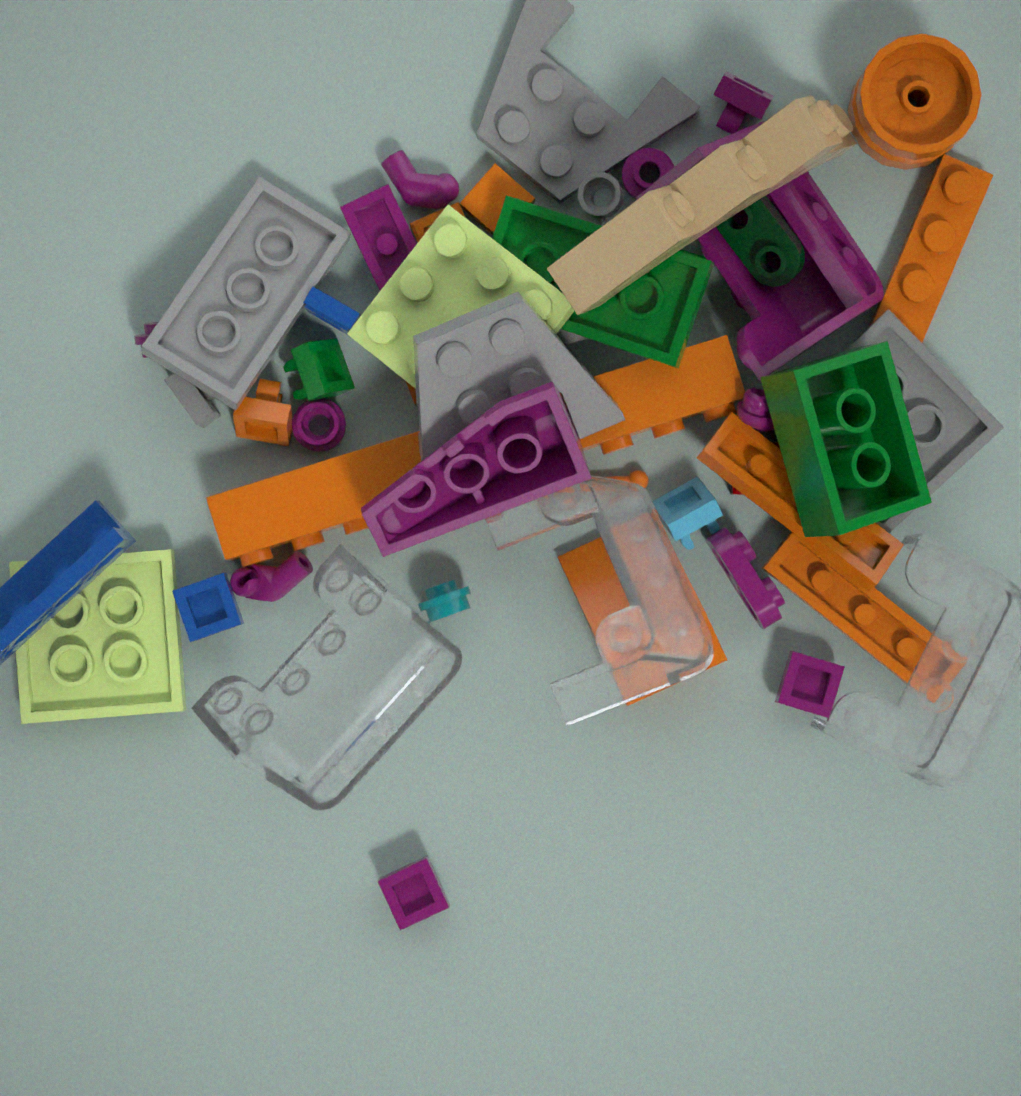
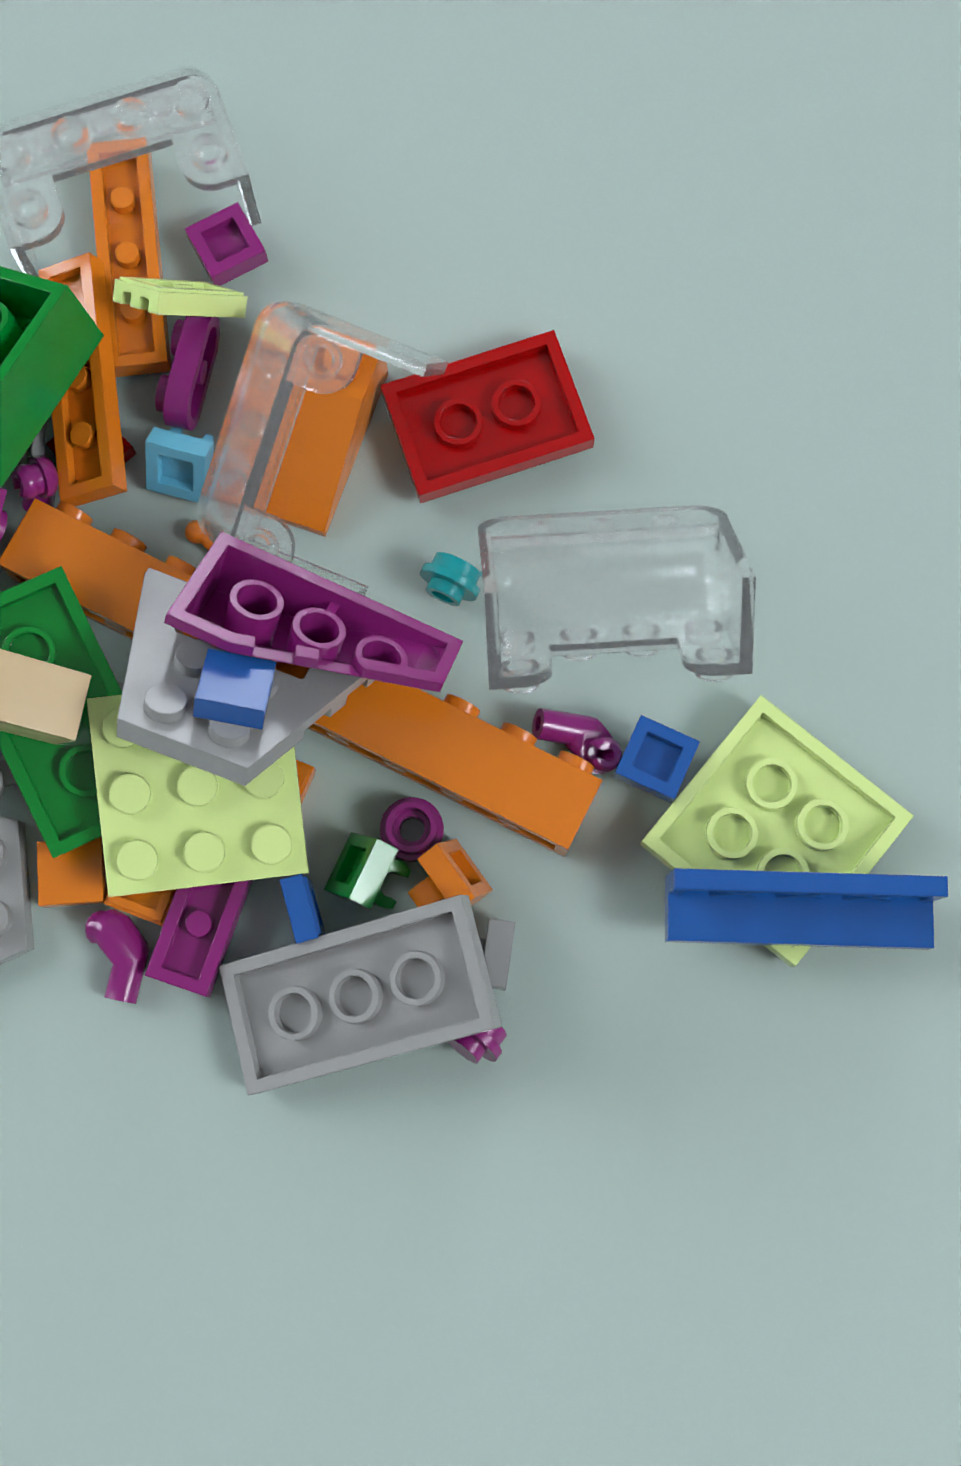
camera: 135 degrees left, 10 degrees down
(413, 893) = (706, 377): magenta plate -> none
(473, 384) = (234, 689): none -> blue tile
(518, 739) = (488, 416): none -> red plate
(789, 612) = (180, 297): none -> yellowish green tile

